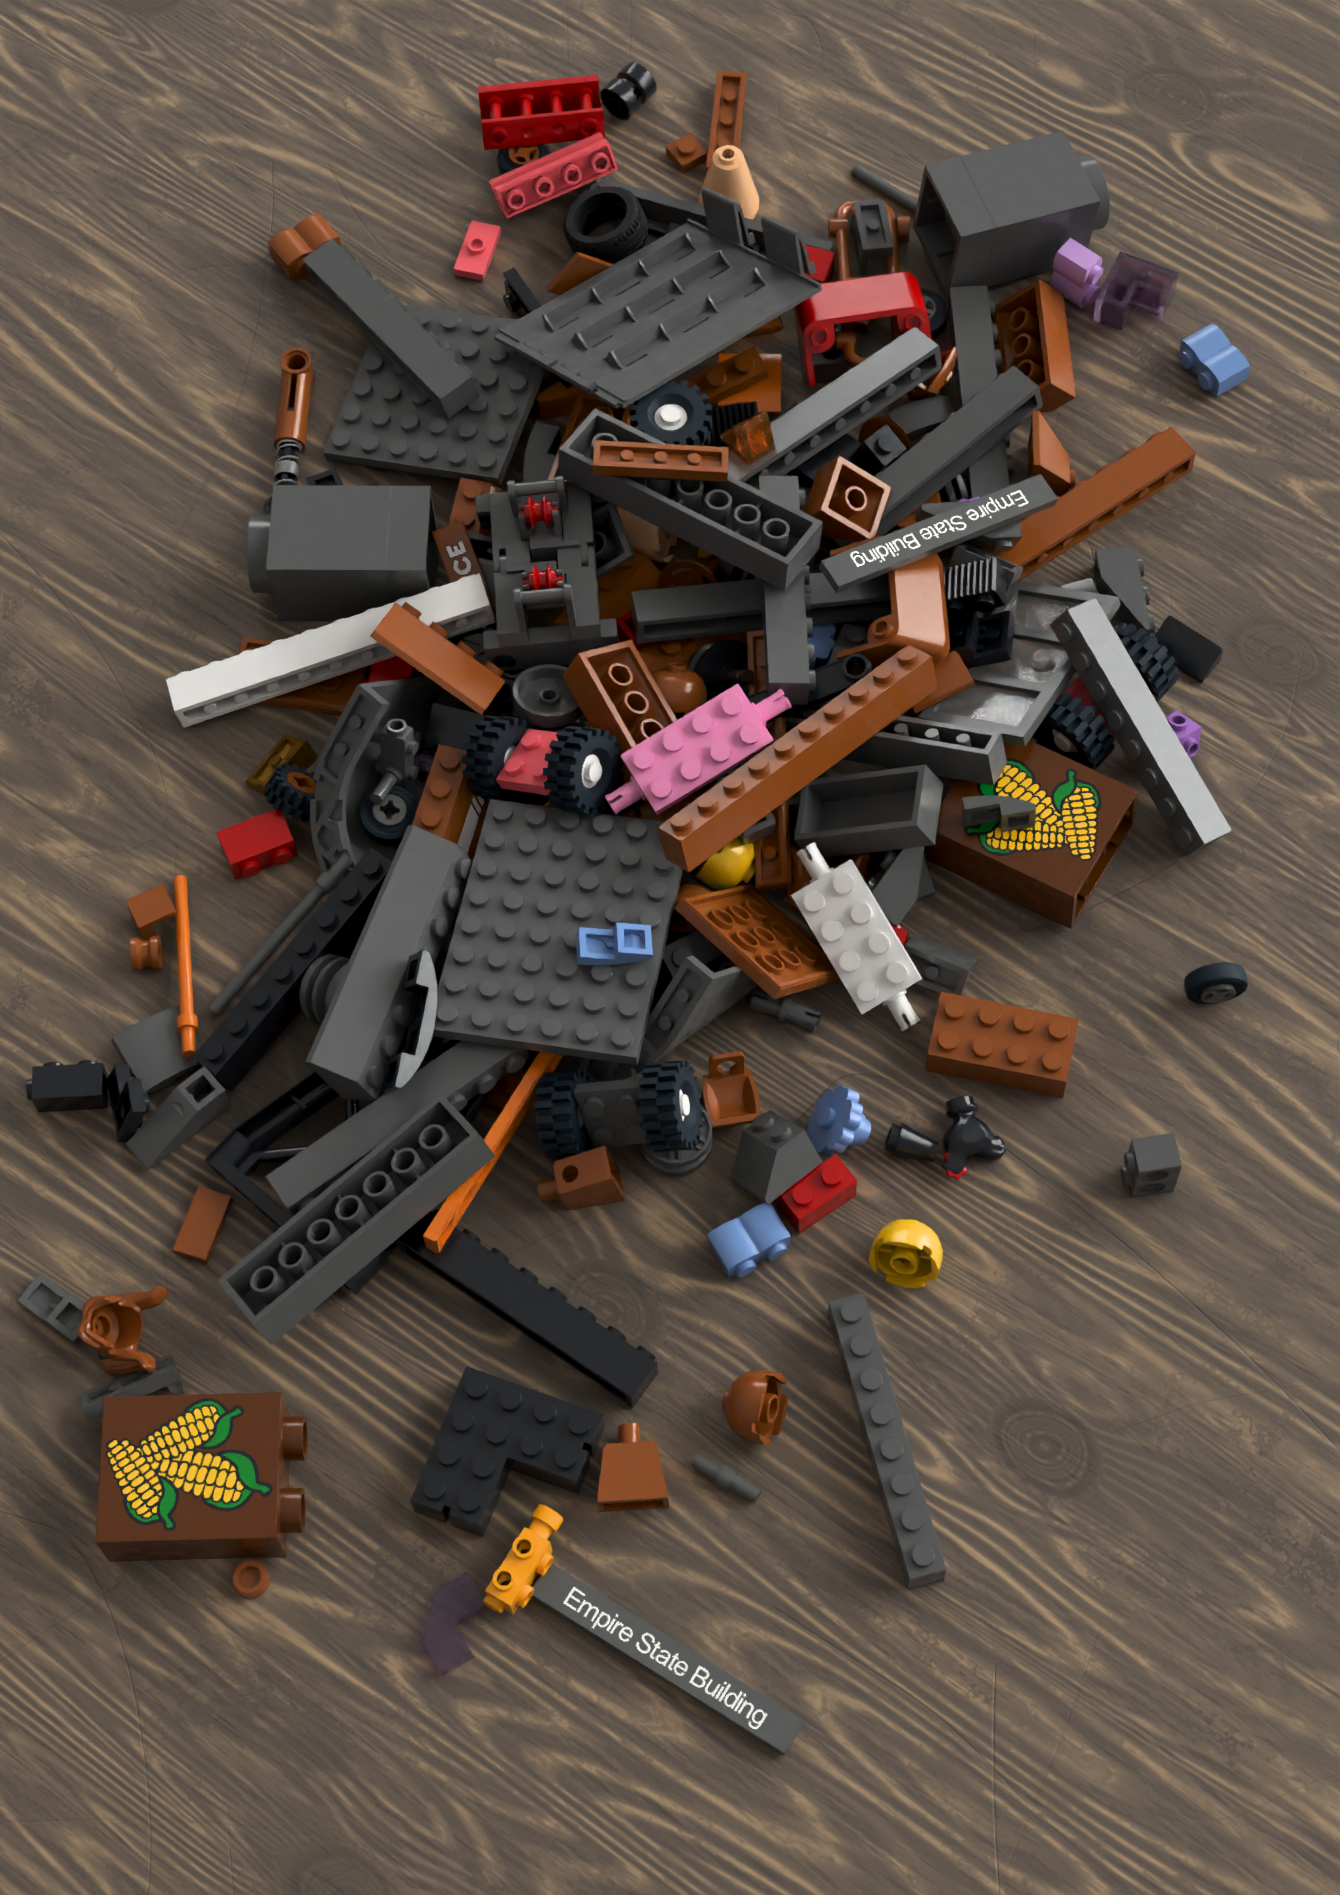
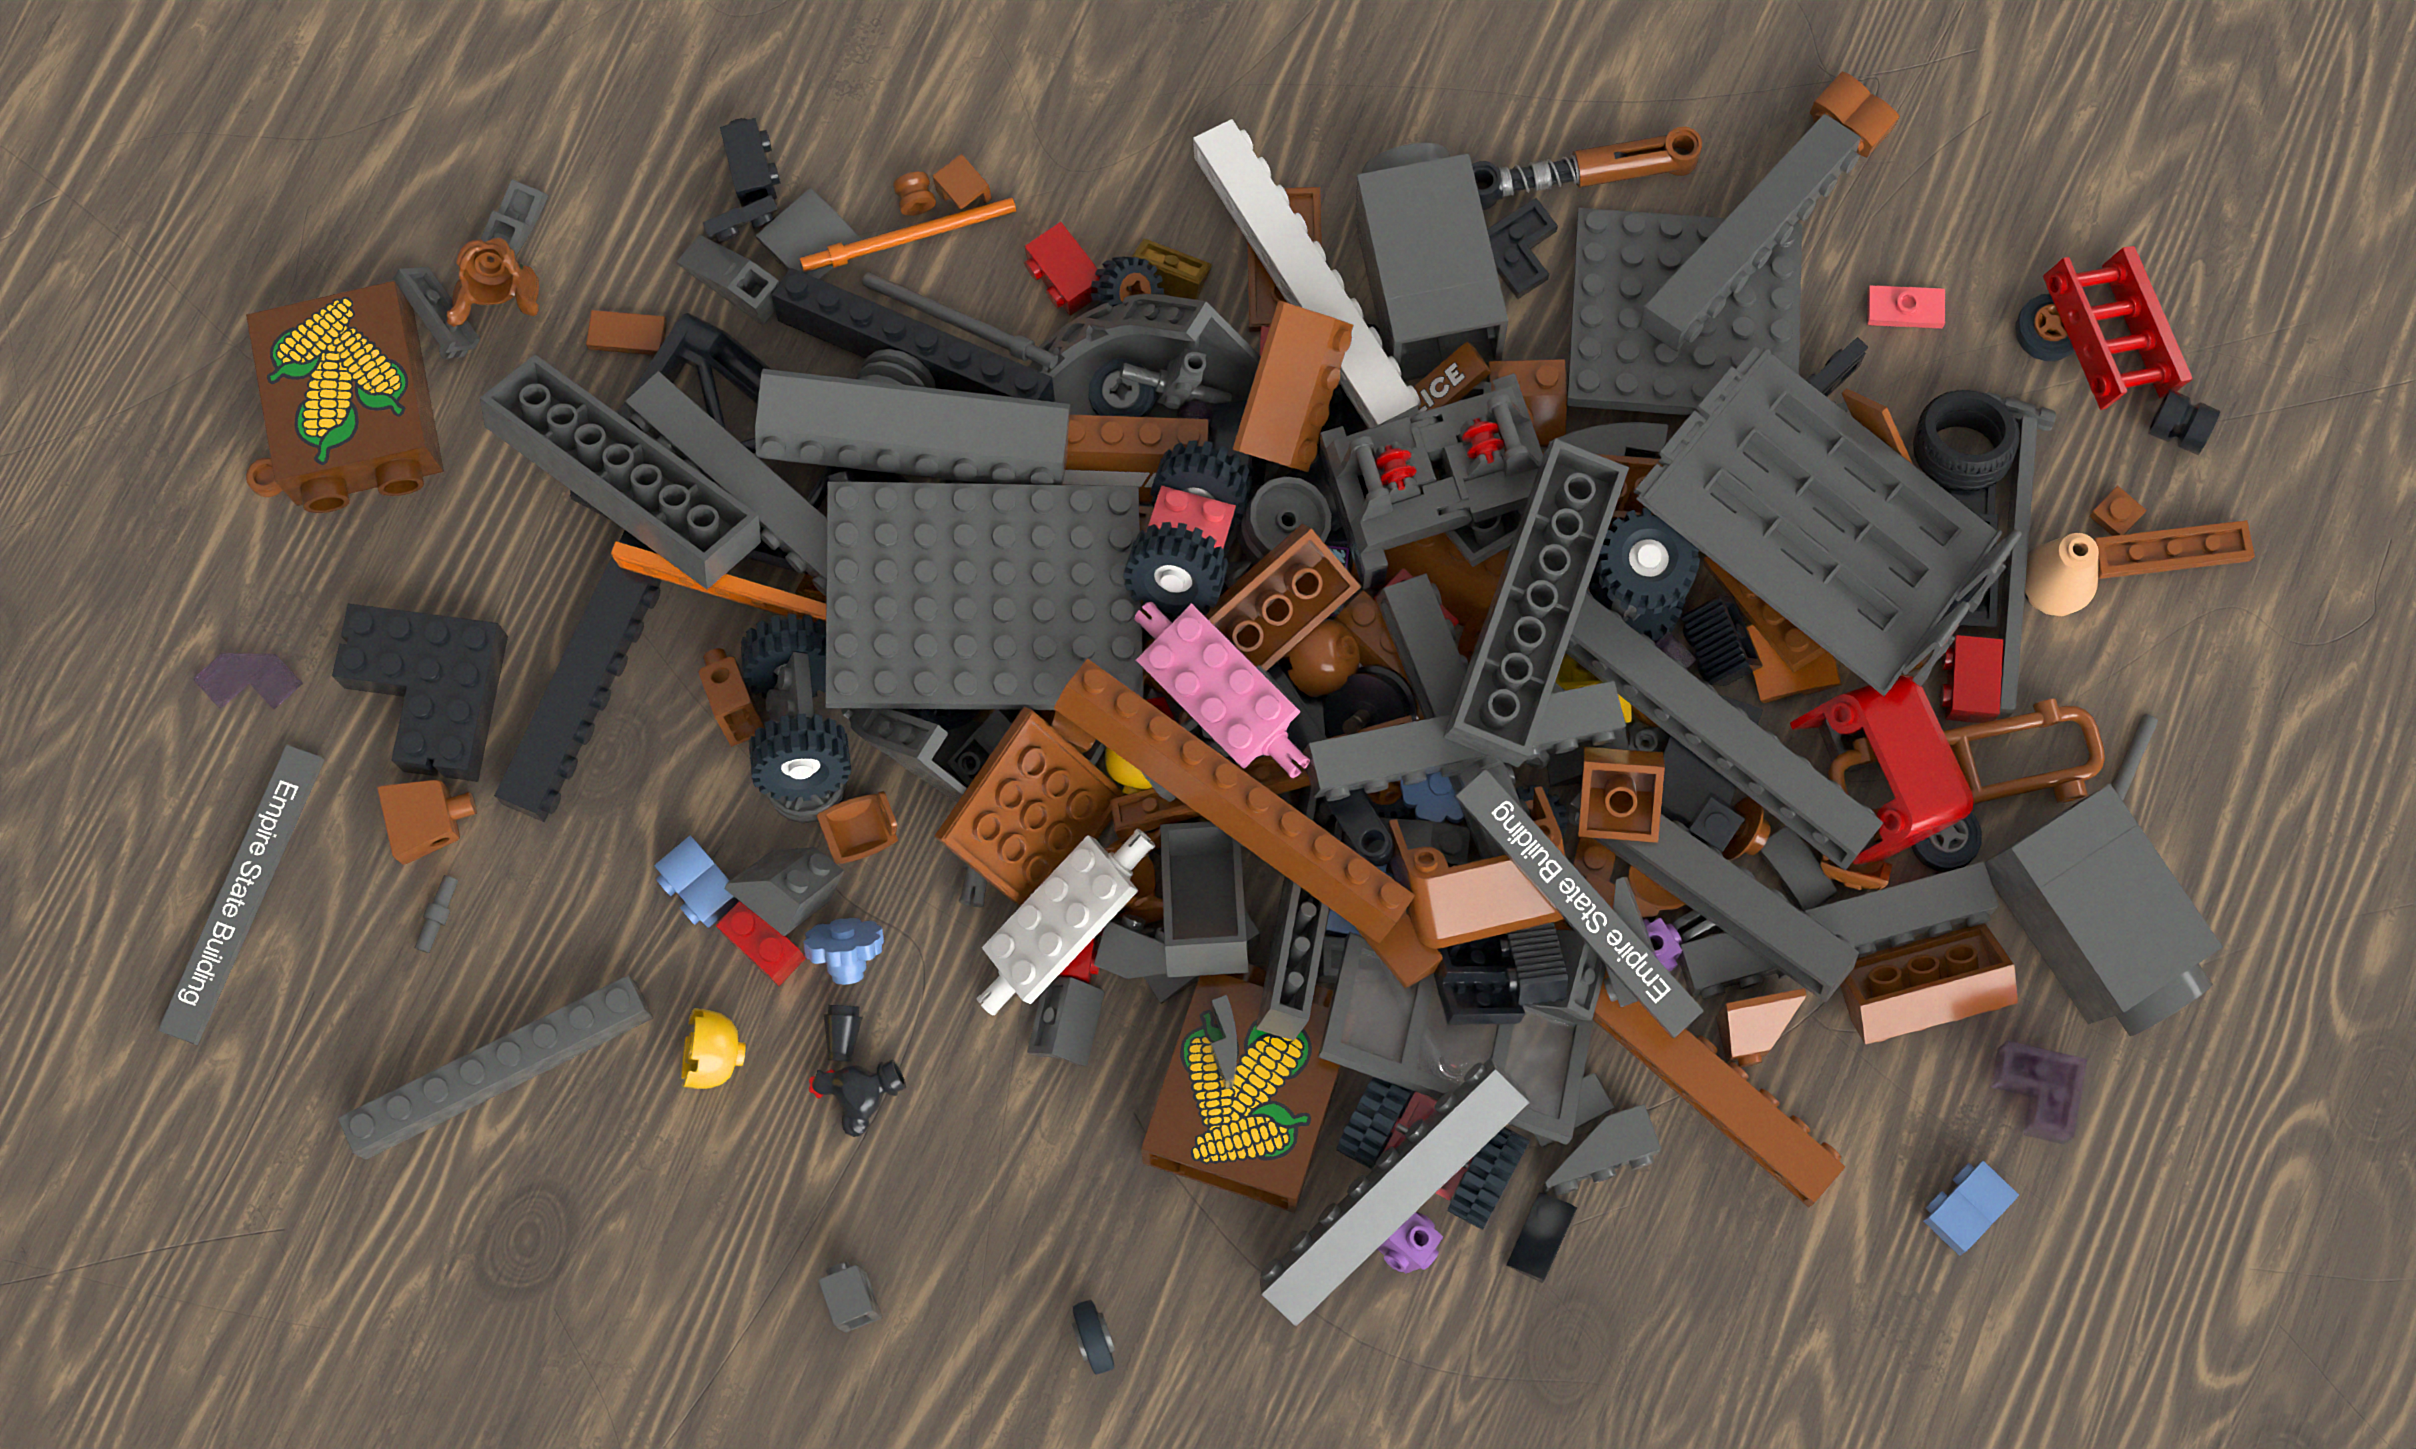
camera: 80 degrees right, 10 degrees up
(421, 980) = (787, 470): slope -> none
(522, 1569) = (309, 731): light orange brick -> none
(553, 175) = (2025, 363): coral brick -> none
(611, 947) = (957, 650): medium blue slope -> none
(660, 460) = (1559, 553): dark orange plate -> none
(751, 438) = (1664, 658): clear orange slope -> none
(756, 1405) = (510, 926): dark orange cylinder -> none
(870, 231) = (2046, 752): dark grey panel -> none
(1001, 1044) = (975, 1109): dark orange brick -> none
(1077, 273) = (2046, 1013): lavender brick -> none

